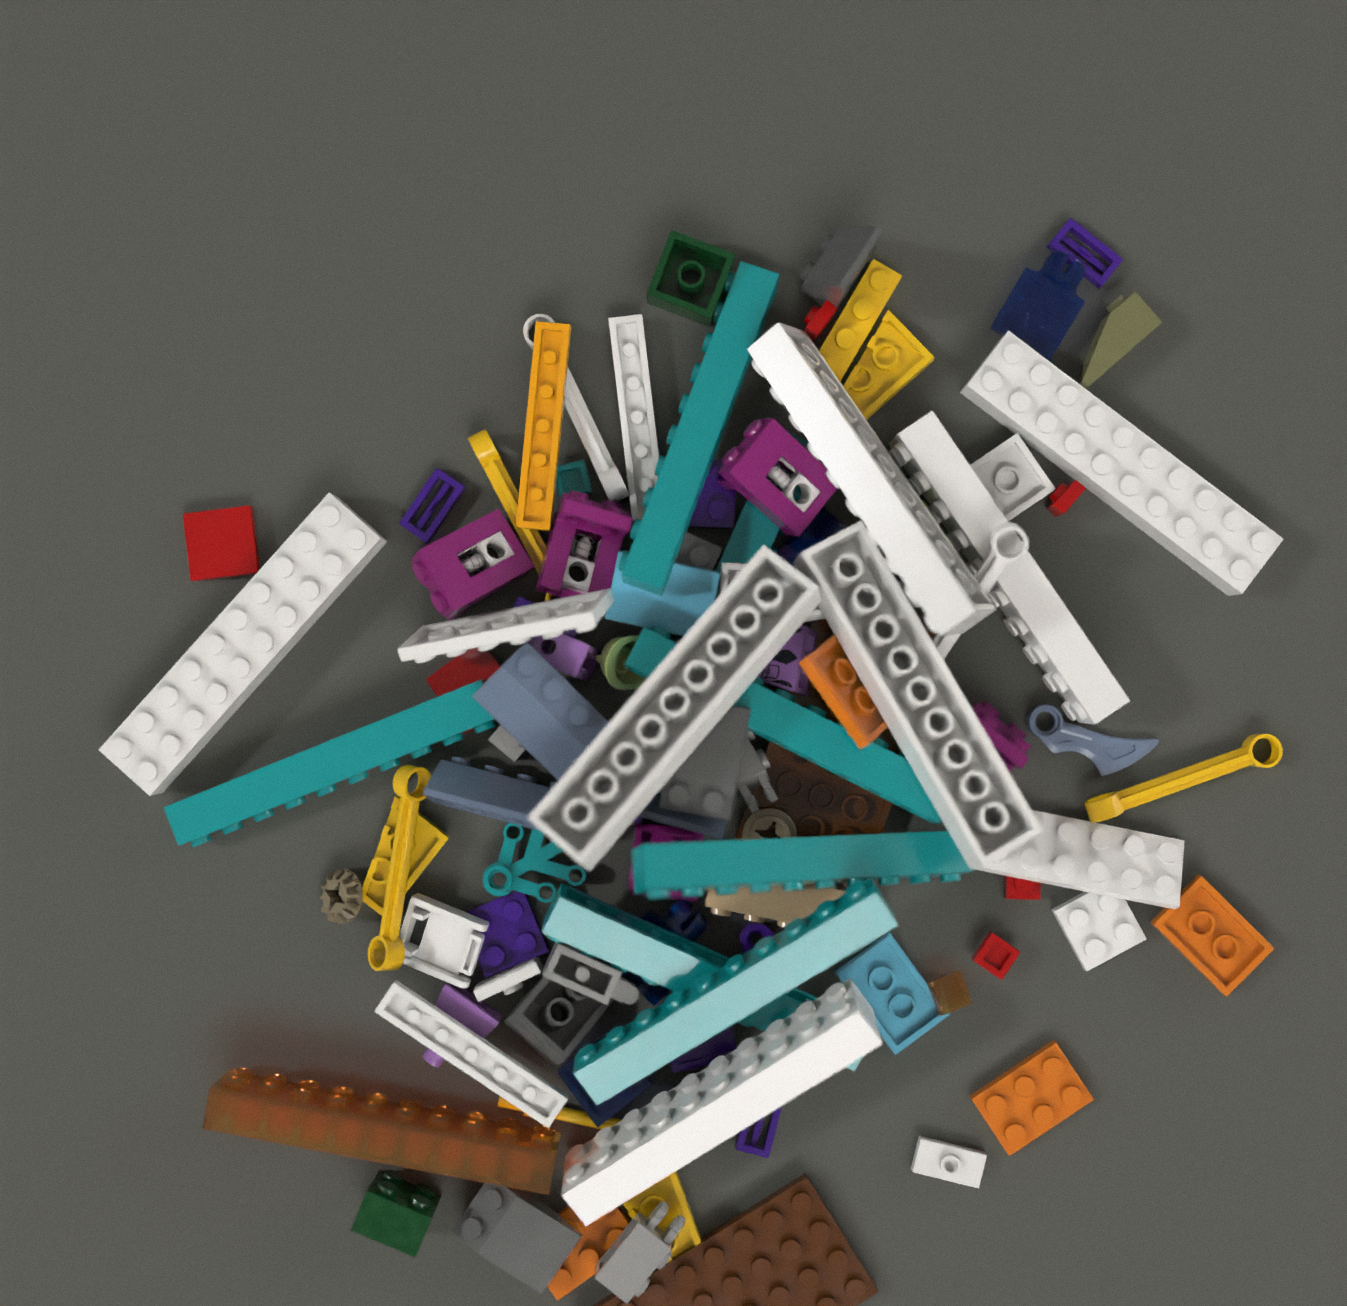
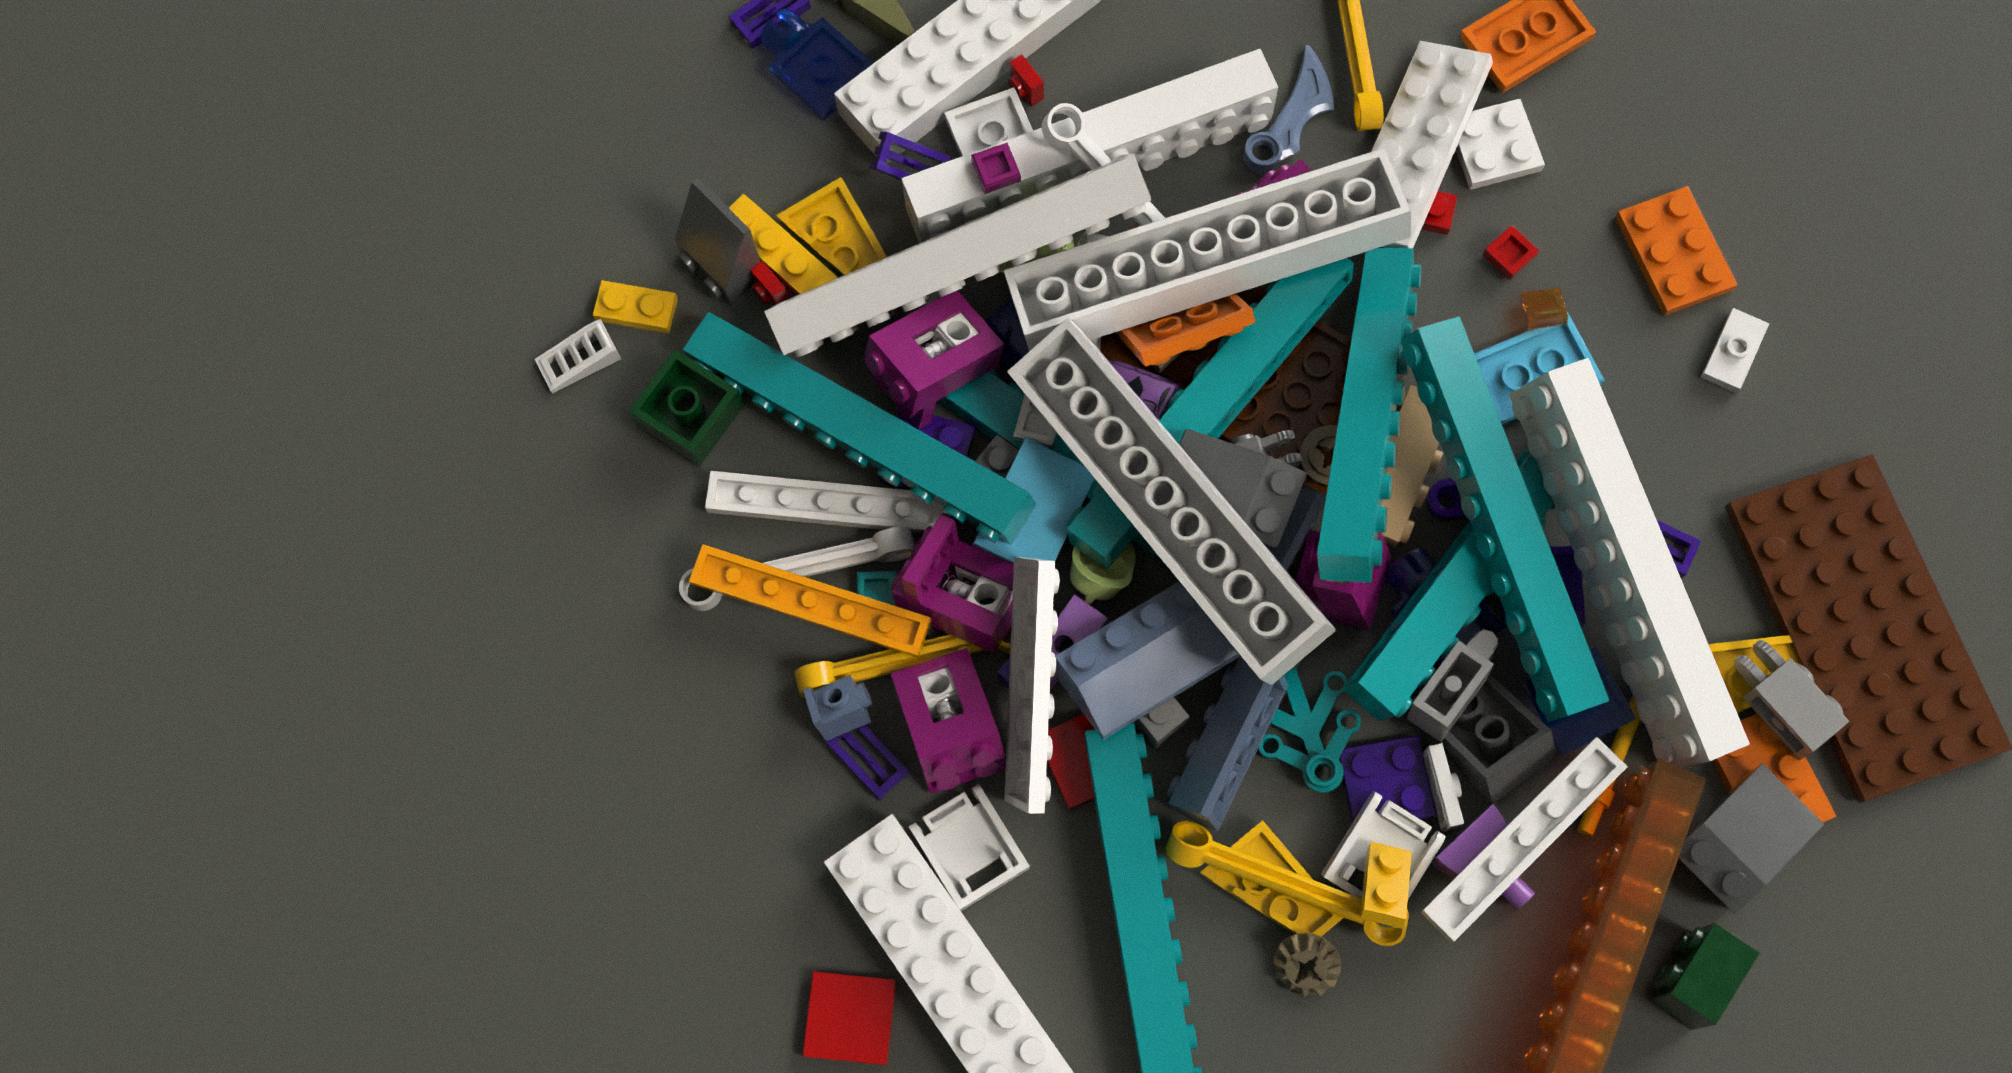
camera: 75 degrees left, 15 degrees down
(381, 600) = (967, 841): none -> white container
(410, 948) = (1386, 885): none -> yellow plate
(462, 484) = (838, 707): none -> sand blue brick
(740, 192) = (571, 345): none -> white slope
(778, 210) = (635, 306): none -> yellow plate
(958, 491) = (996, 168): none -> magenta tile
(961, 388) = (884, 153): none -> dark purple tile

